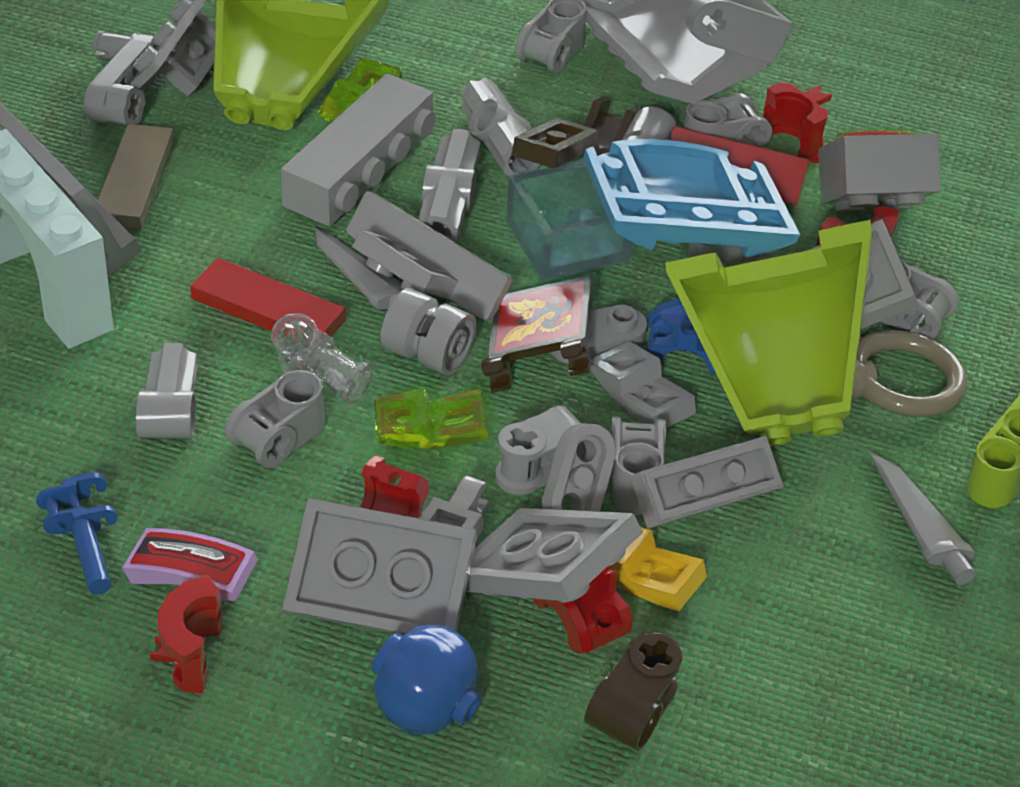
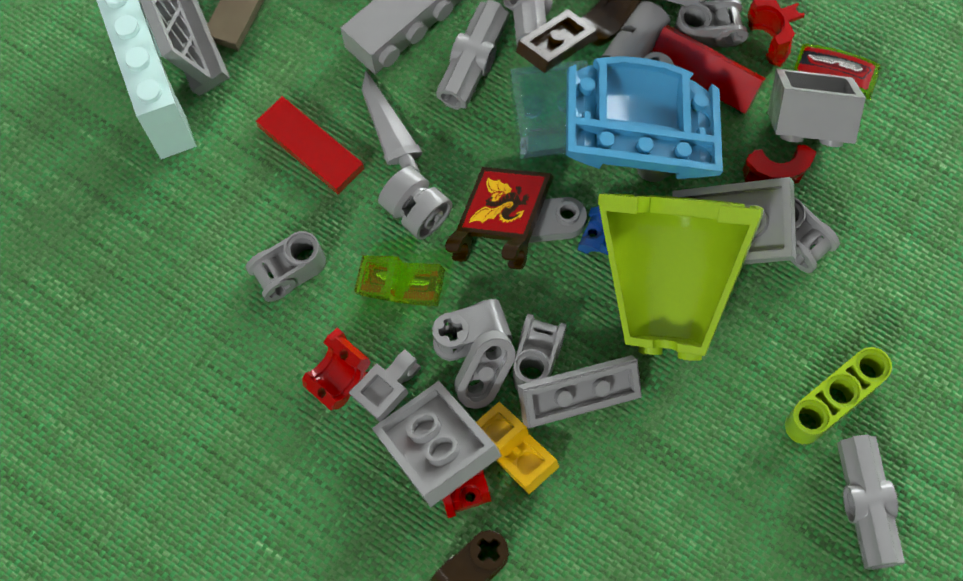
camera: 20 degrees right, 25 degrees up
(81, 522) = (131, 333): blue piece -> none
(169, 400) = (213, 235): light grey piece -> none
(180, 555) = (195, 383): slope -> none
(183, 622) = (167, 445): red piece -> none
(309, 349) = (328, 213): clear connector -> none
(378, 569) = (318, 427): light grey plate -> none
(425, 258) = (429, 126): light grey bracket -> none
(427, 679) = (329, 524): blue plant -> none
(637, 385) = (565, 278): light grey slope -> none
(867, 383) = (737, 306): dark tan piece -> none
(933, 533) = (742, 459): light grey bar -> none

